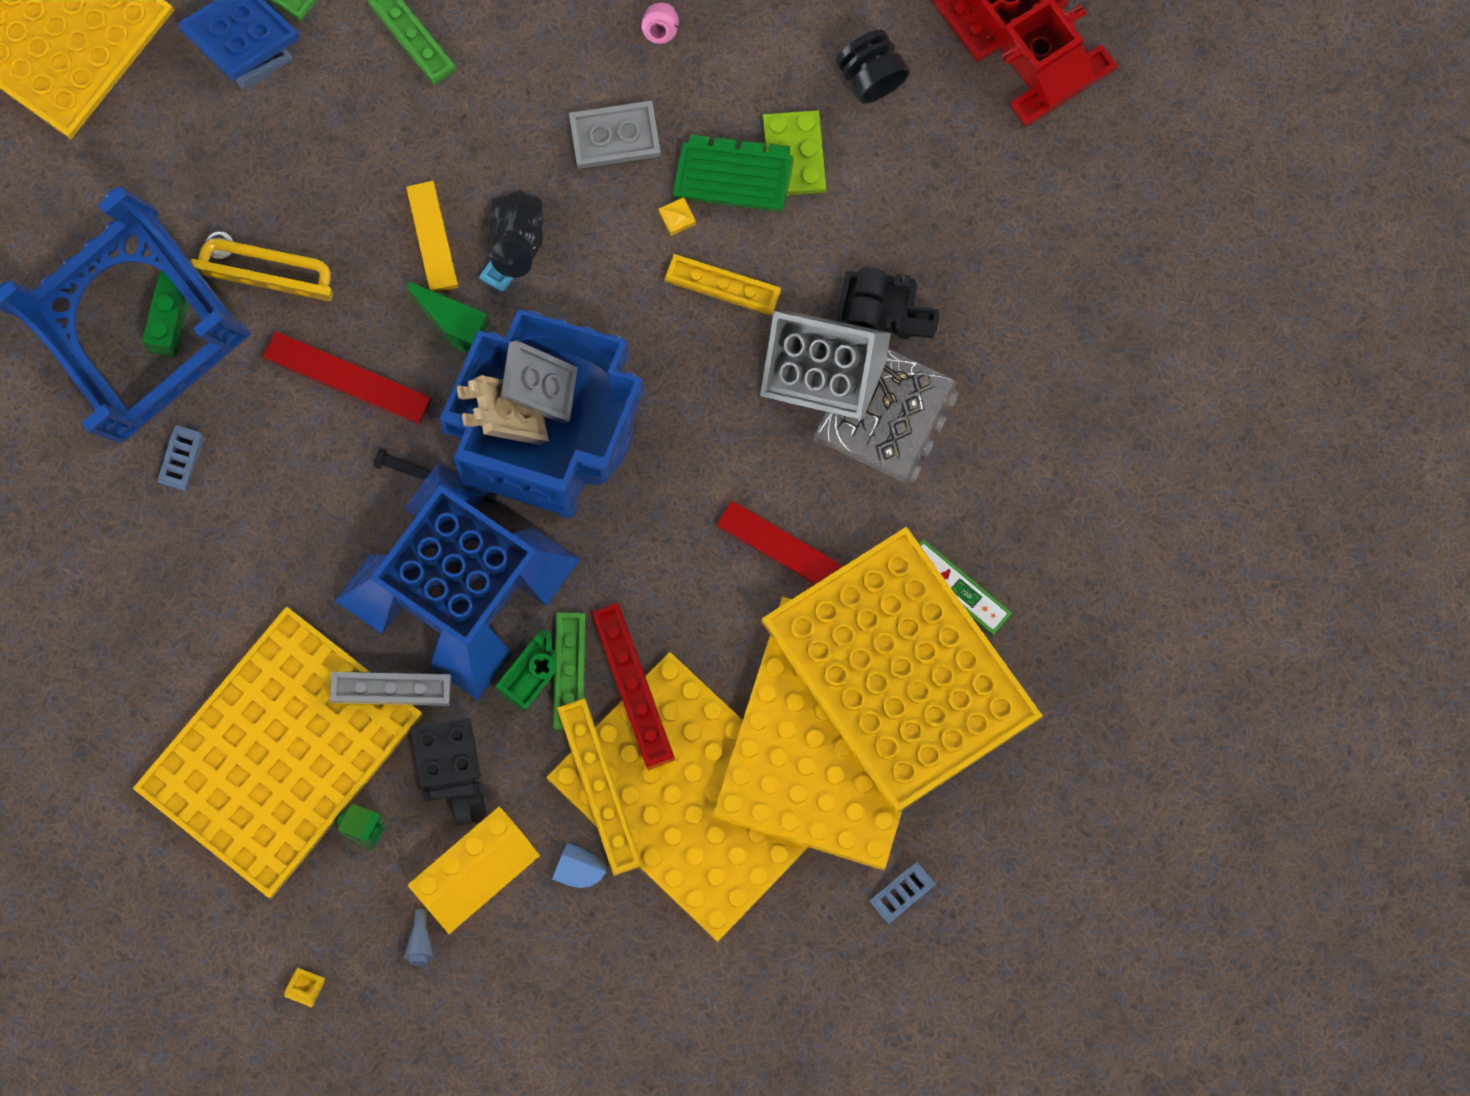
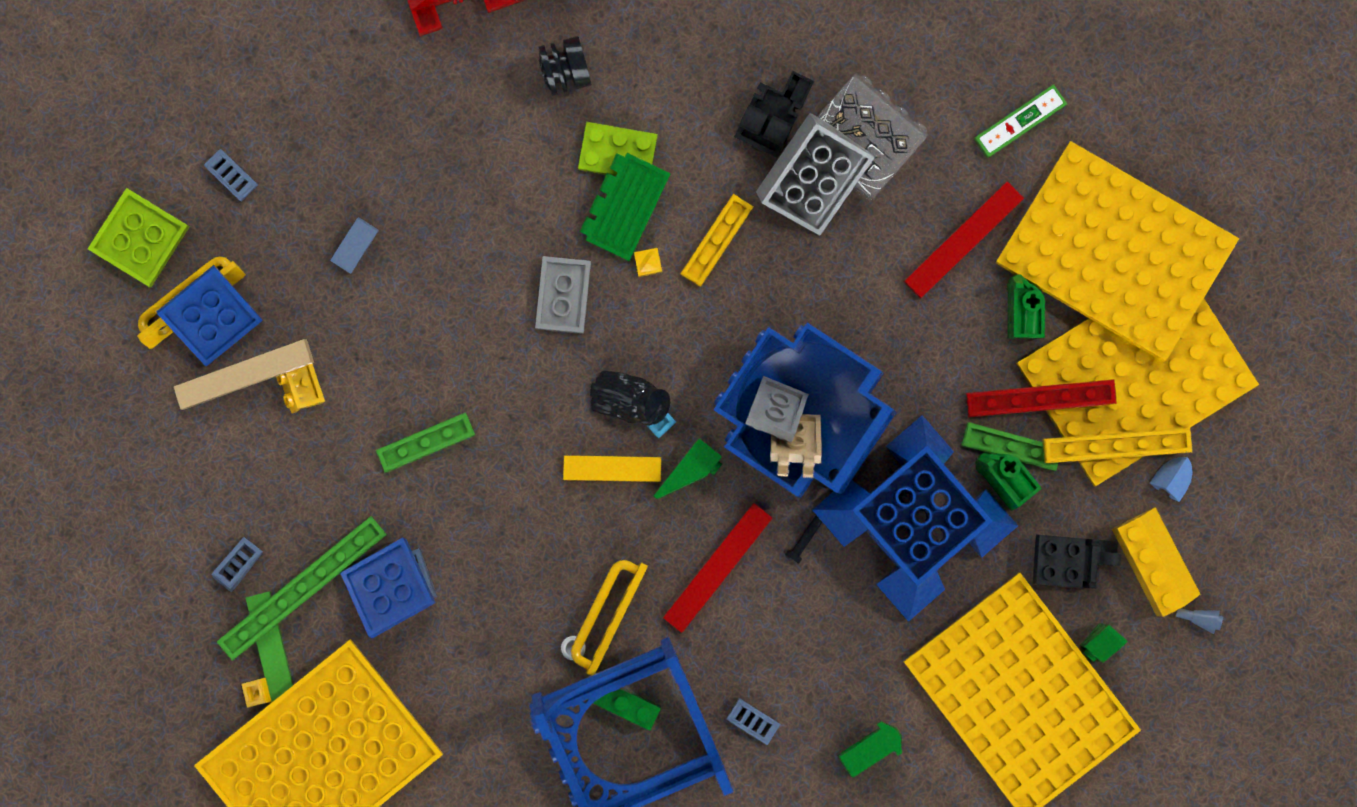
camera: 75 degrees left, 10 degrees up
(175, 591) = (871, 749): none -> green piece
(304, 987) = (1217, 718): yellow tile -> none
(390, 688) = (998, 592): light grey plate -> none
(660, 23) = (475, 231): bright pink head -> none
(720, 643) = (1025, 320): none -> green piece
(901, 669) = (1084, 182): yellow plate -> none
(923, 877) = (1247, 235): sand blue slope -> none

